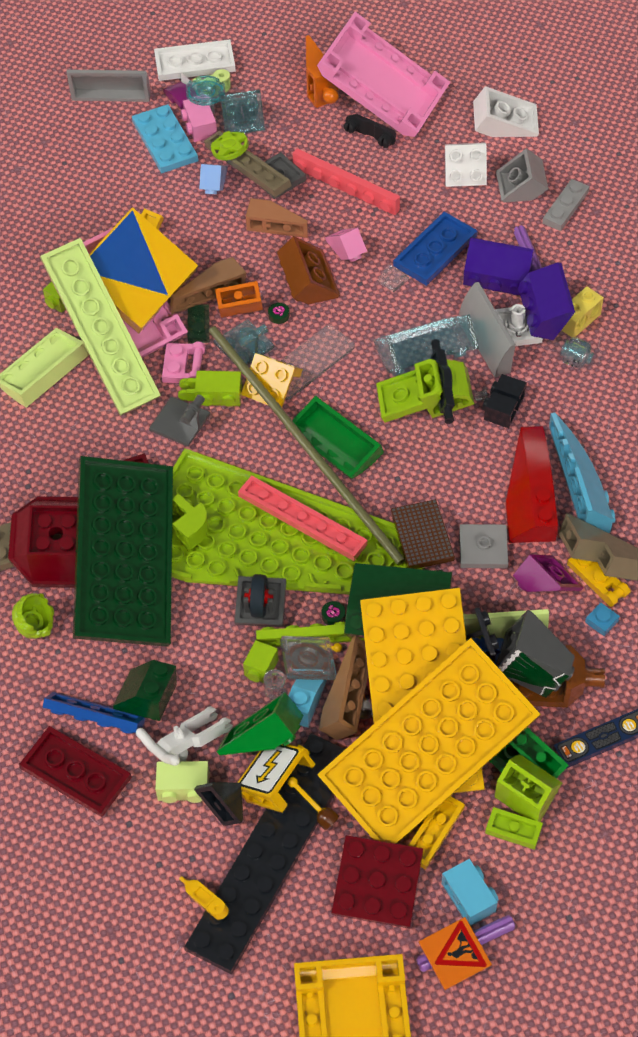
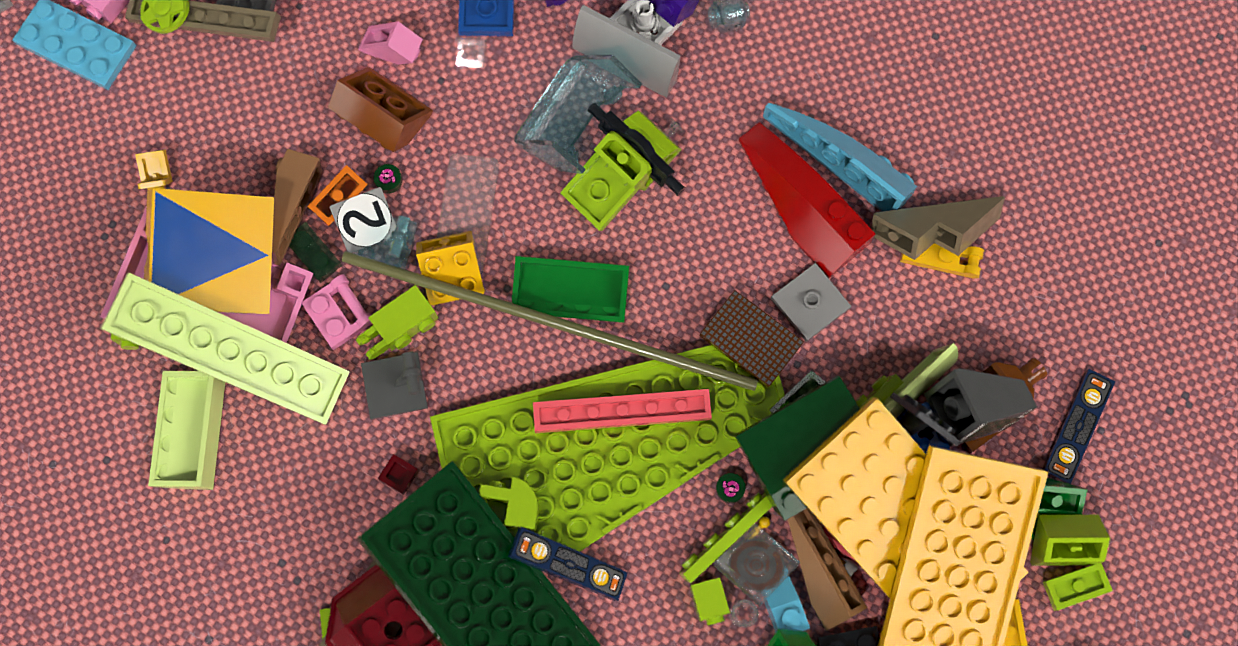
camera: 40 degrees left, 20 degrees up
(191, 577) = (568, 564): none -> tile
(212, 178) = (175, 58): light blue slope -> none
(241, 317) = (363, 219): none -> sticker
(260, 601) = (655, 534): dark grey plate -> none
(274, 219) = (283, 67): nougat slope -> none
(505, 397) = (705, 128): black piece -> none
(545, 574) = (902, 295): magenta slope -> none
(602, 619) = (980, 299): dark azure plate -> none

